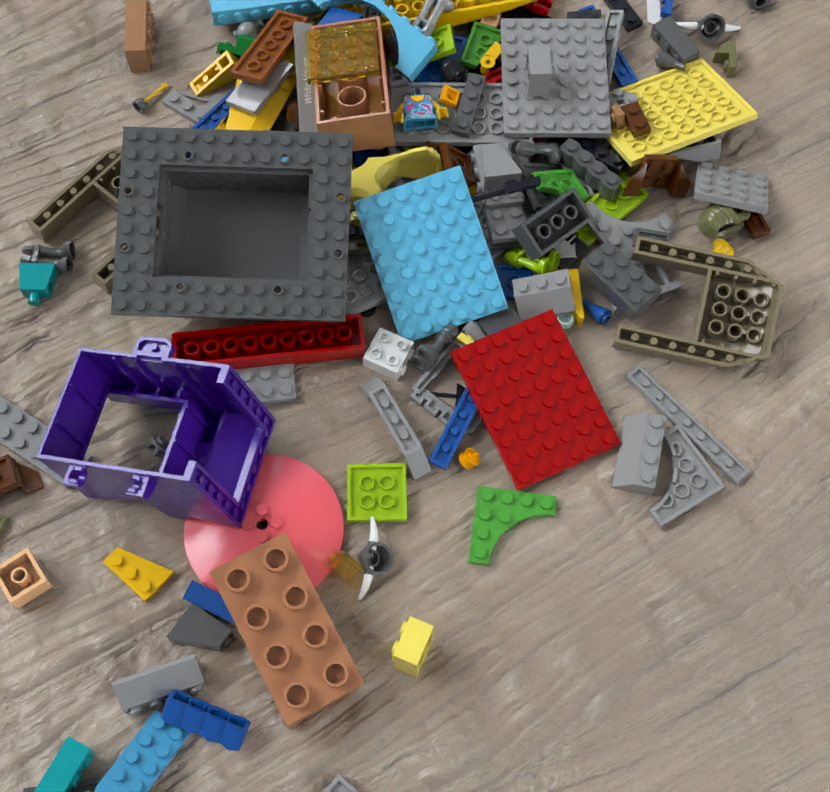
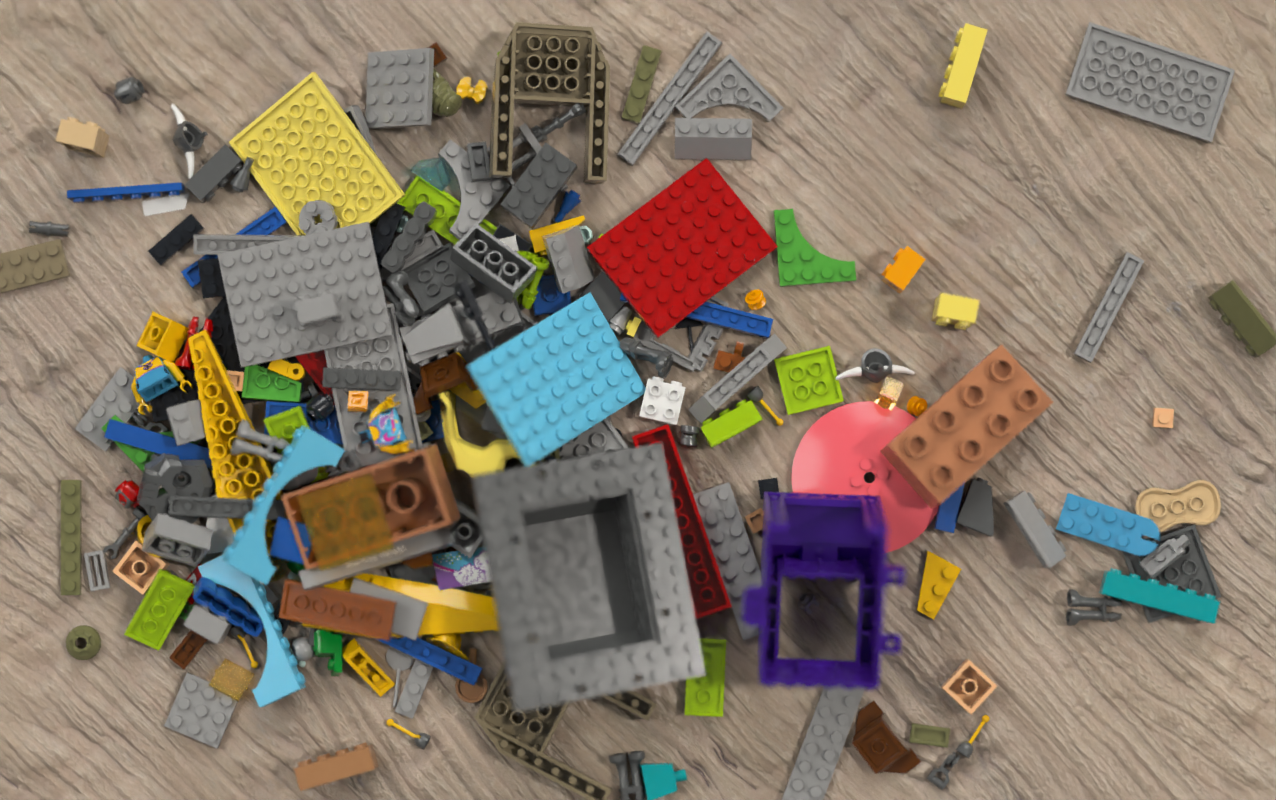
camera: 95 degrees left, 20 degrees up
(57, 709) = (1074, 599): none -> dark grey piece
(111, 334) = (706, 692): none -> lime plate
(204, 719) = (1056, 482): blue brick -> none
(280, 434) = (768, 485): none -> black plate
(325, 591) = (916, 406): none -> light orange wheel
(350, 370) = (686, 439): none -> dark grey wheel
(351, 408) = (730, 423): none -> lime slope
(374, 440) = (756, 396): none -> hinge
(416, 420) = (728, 361): none -> dark orange plate
(469, 606) = (902, 271): none -> light orange brick
(560, 181) = (434, 265): bright green wing -> none
(617, 117) = (344, 219): medium nougat plate -> none
(636, 119) = (344, 199): reddish brown plate -> none
(646, 206) = (433, 171): none -> clear light blue slope
(662, 172) = (397, 165): reddish brown piece -> none
(669, 302) = (541, 133): none -> dark grey piece
(679, 720) = (963, 66): none -> light yellow brick
(705, 401) = (641, 84): none -> olive plate
(727, 57) = (218, 112): olive slope -> none

